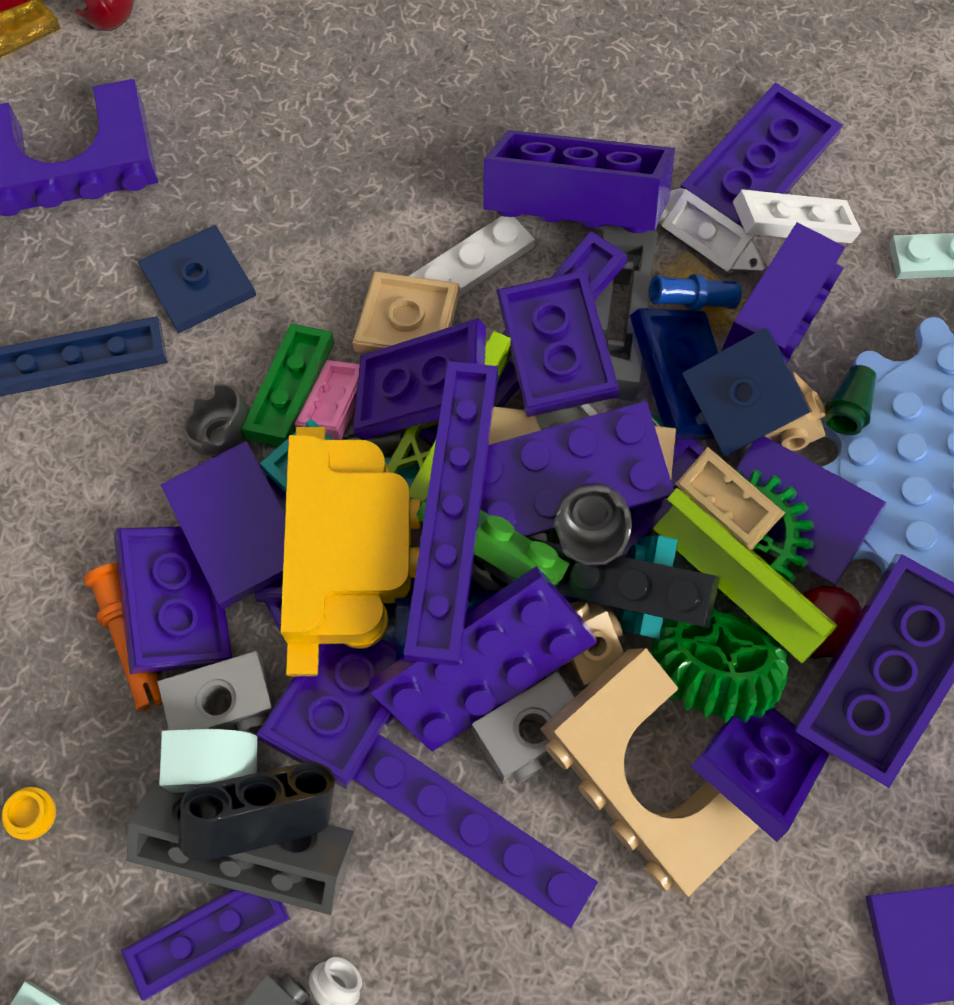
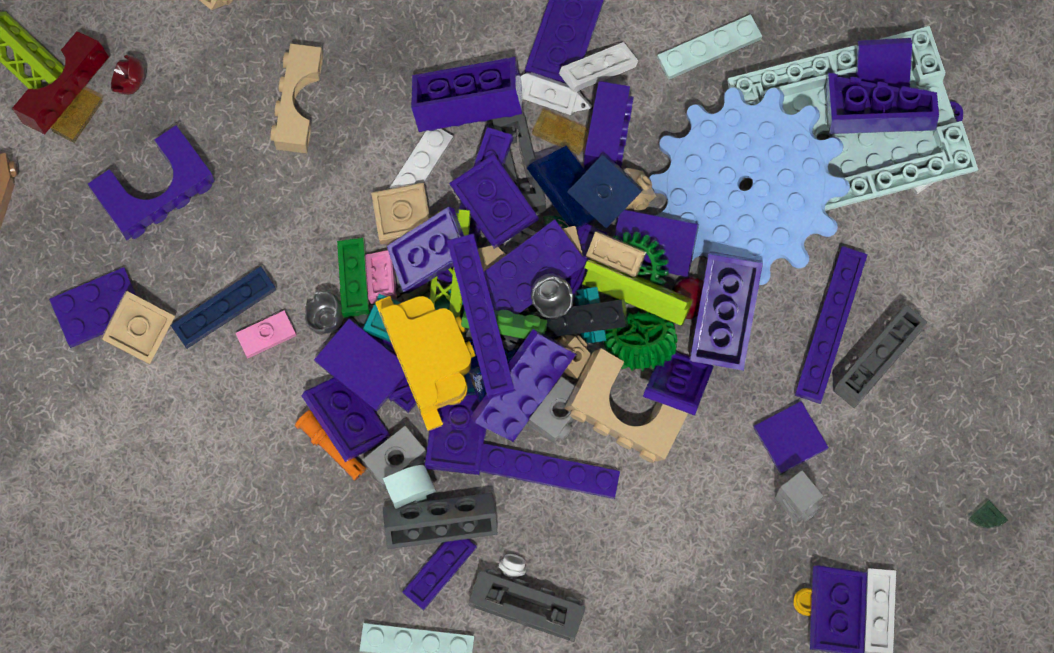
camera: 20 degrees left, 5 degrees up
(28, 813) = (324, 549): yellow plate -> none
(117, 422) = (265, 334): none -> bright pink plate
(197, 278) = (268, 233): dark blue plate -> none
(255, 811) = (443, 498): black beam -> none
(353, 75) = (302, 67): none -> tan arch
(695, 292) = (557, 138): blue pin -> none
(851, 401) = (663, 172): dark green cone -> none

